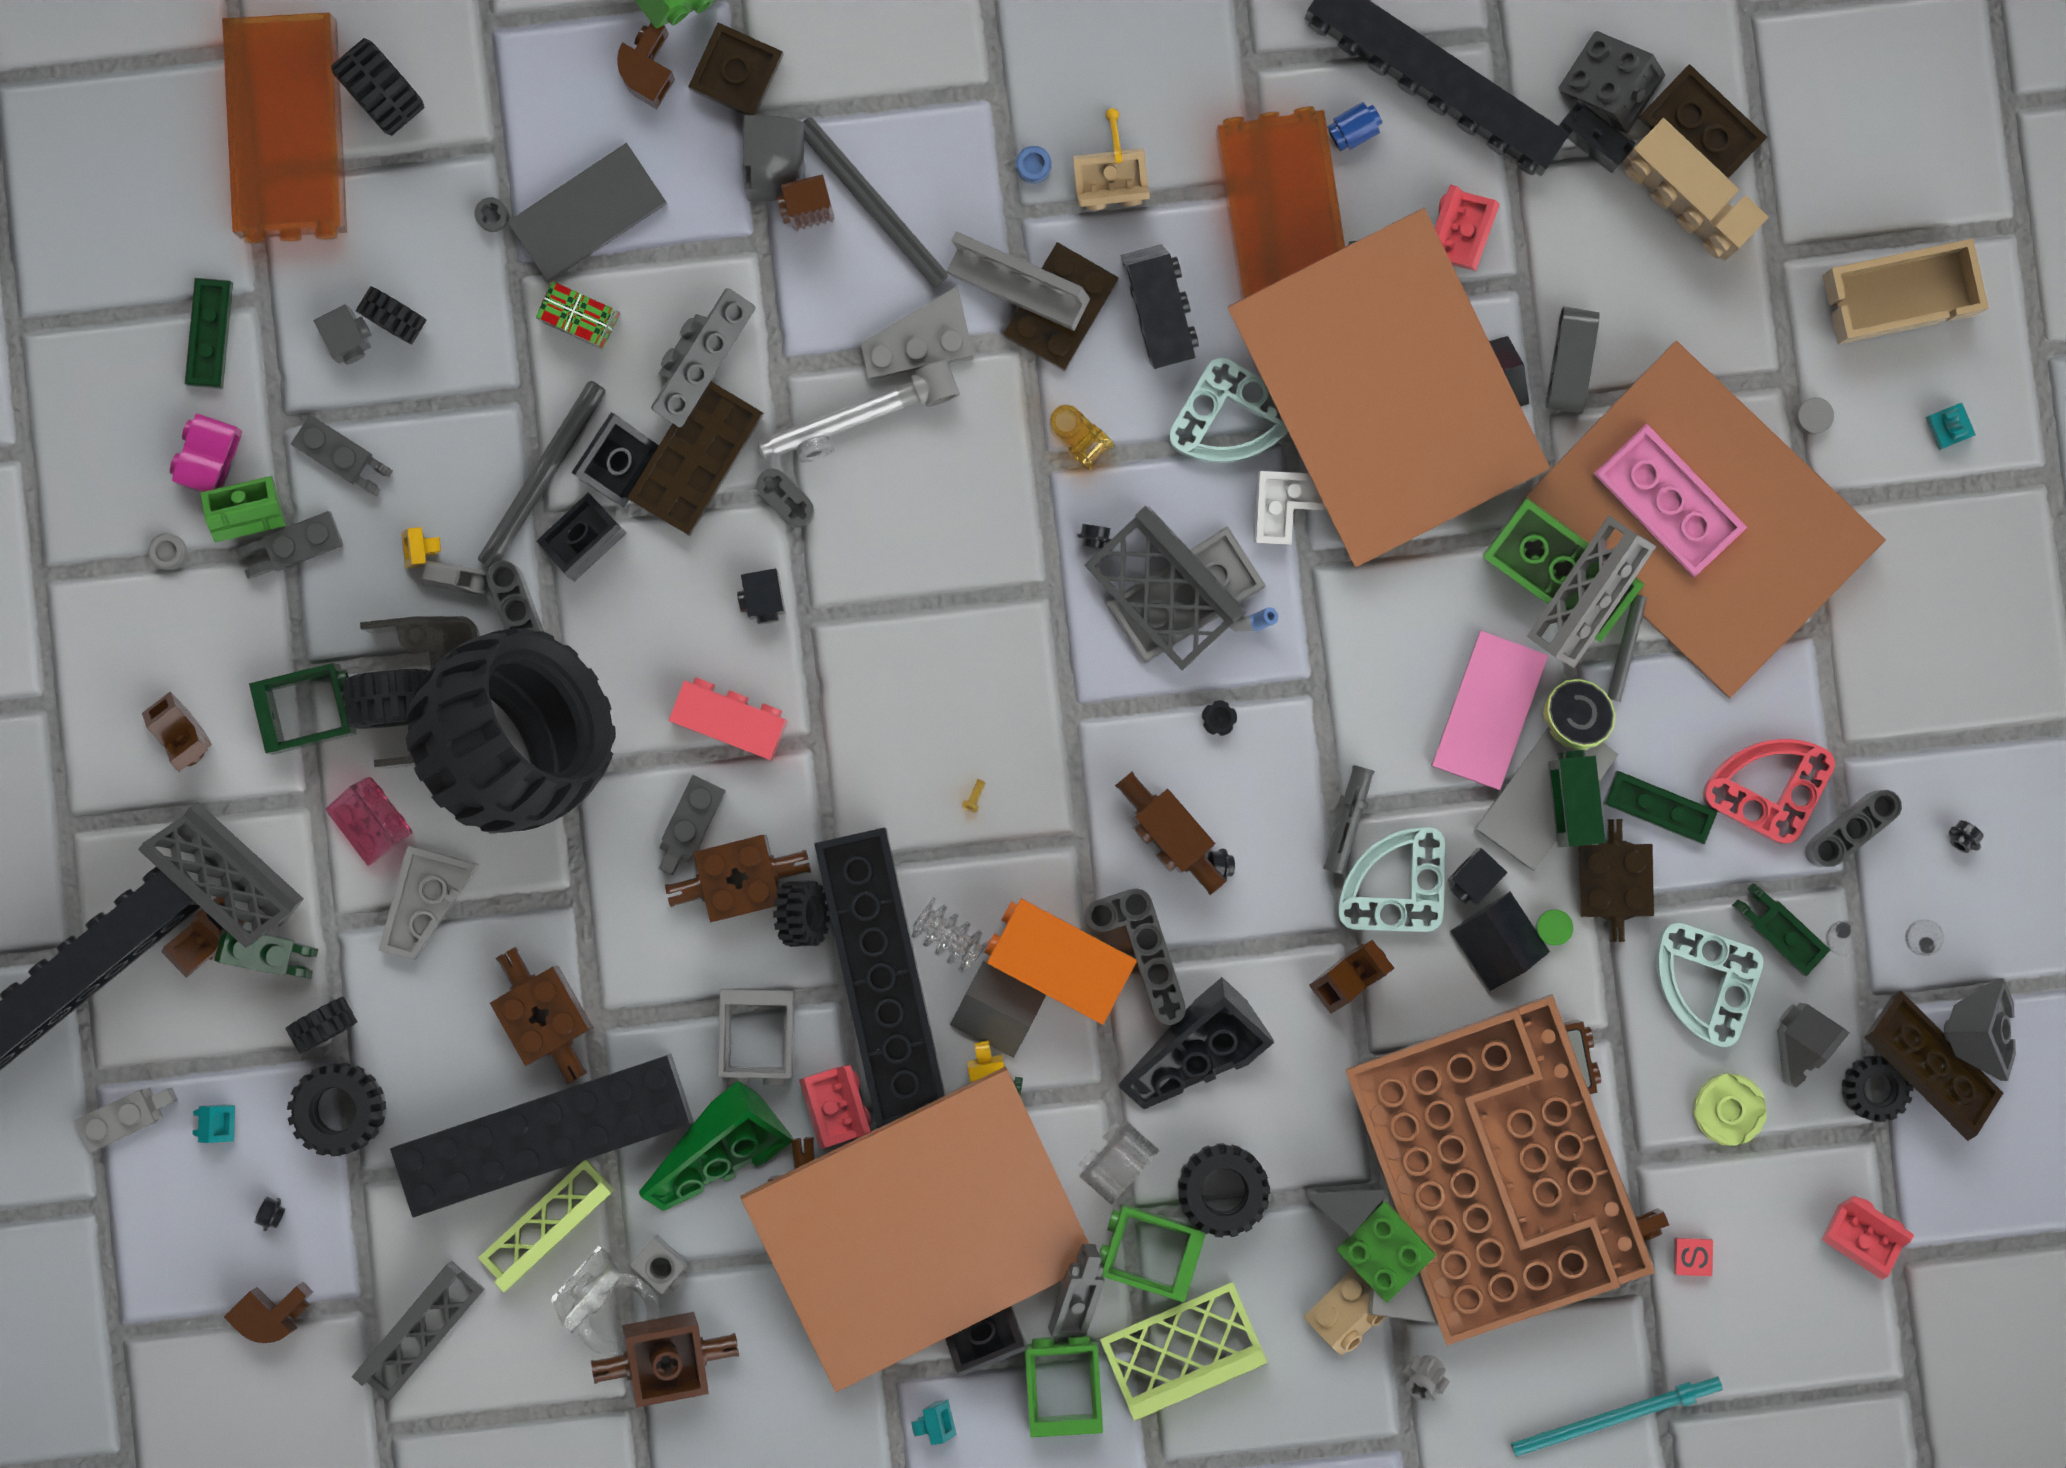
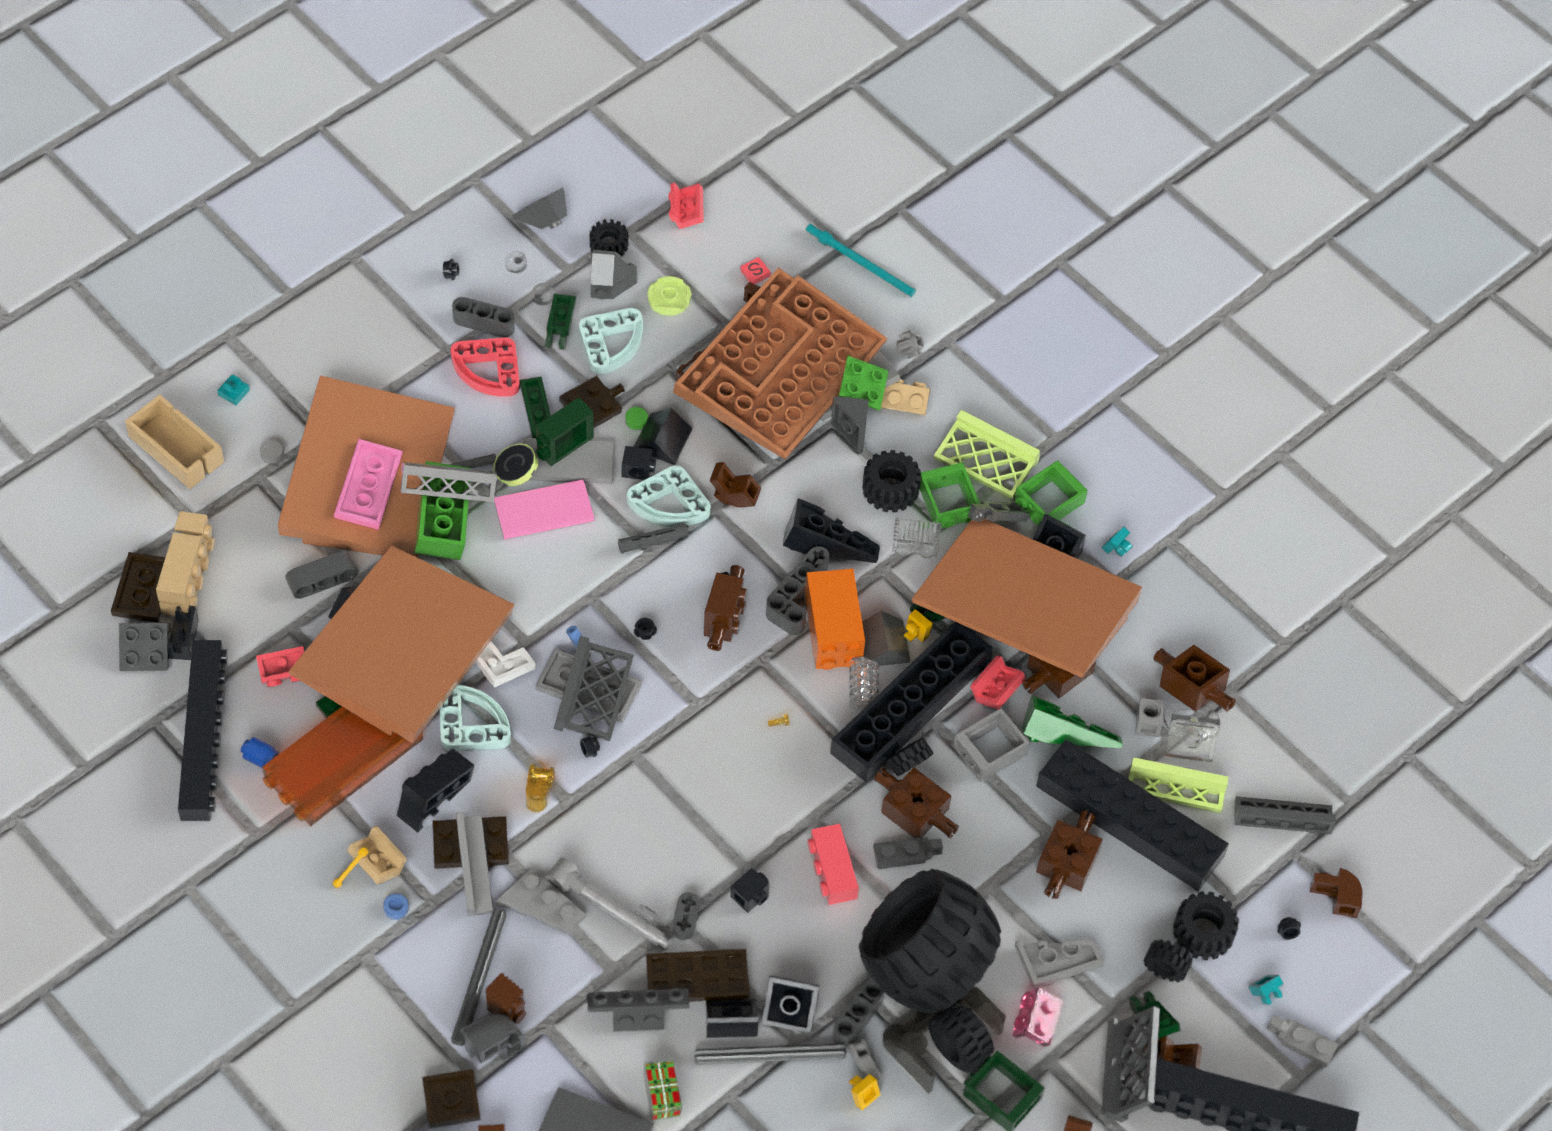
camera: 125 degrees left, 30 degrees down
(1930, 1066) = (579, 225): dark brown plate -> none

